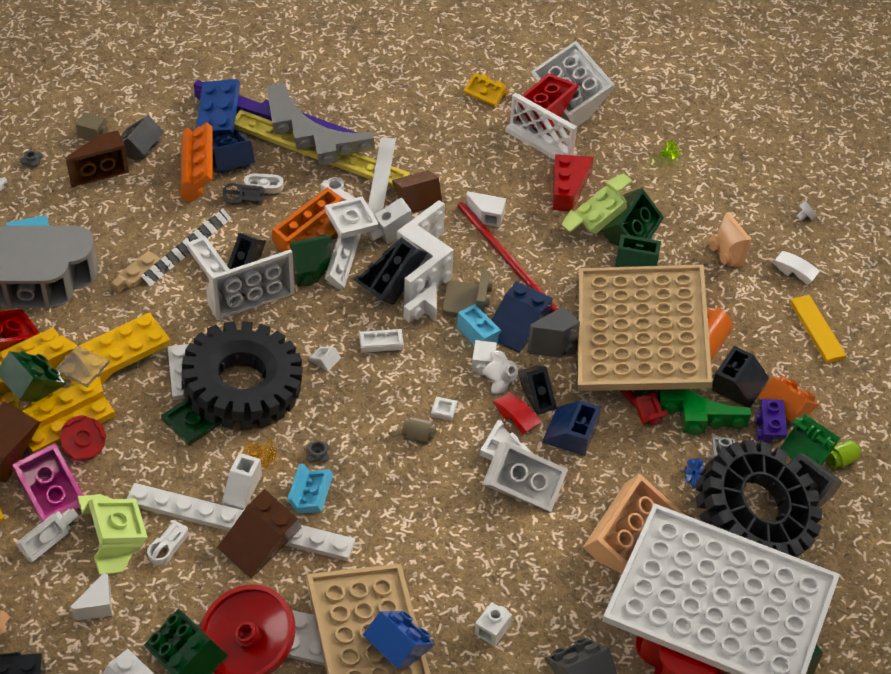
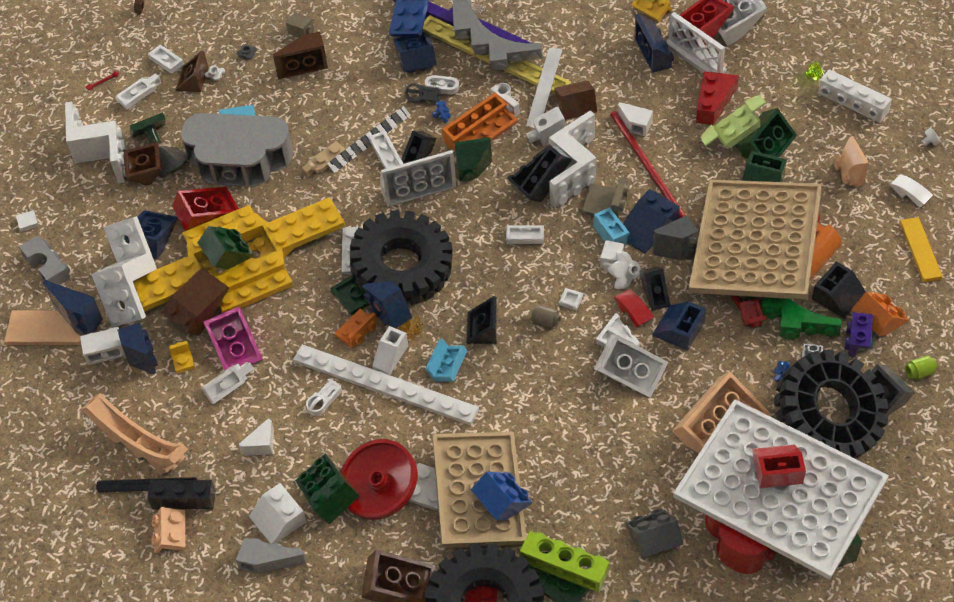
camera: 15 degrees right, 5 degrees up
(82, 366) = (268, 241): clear piece -> none
(82, 438) = (263, 302): red tile -> none
(117, 528) = (283, 382): yellowish green piece -> none
(141, 137) = (339, 37): dark grey slope -> none
(196, 161) = (384, 62): orange brick -> none
(197, 459) = (356, 328): none -> orange bracket
(233, 426) = (387, 303): none -> dark blue slope
(259, 533) = (398, 396): reddish brown slope -> none
(267, 212) = (441, 111): none -> blue plant
(315, 447) = (457, 324): dark grey plate -> none
(325, 357) = (475, 246): white slope -> none
(342, 261) = (502, 153): white plate -> none
(347, 442) = (483, 323): none -> black slope
(351, 217) = (512, 121): white plate -> none
(423, 303) = (567, 202): white slope -> none
(493, 130) = (652, 44): none -> dark blue slope
(493, 624) = (584, 490): white brick -> none
(716, 170) = (854, 96): none -> white brick
(720, 573) = (779, 466): none -> red slope
(810, 439) = (891, 351): green hinge -> none

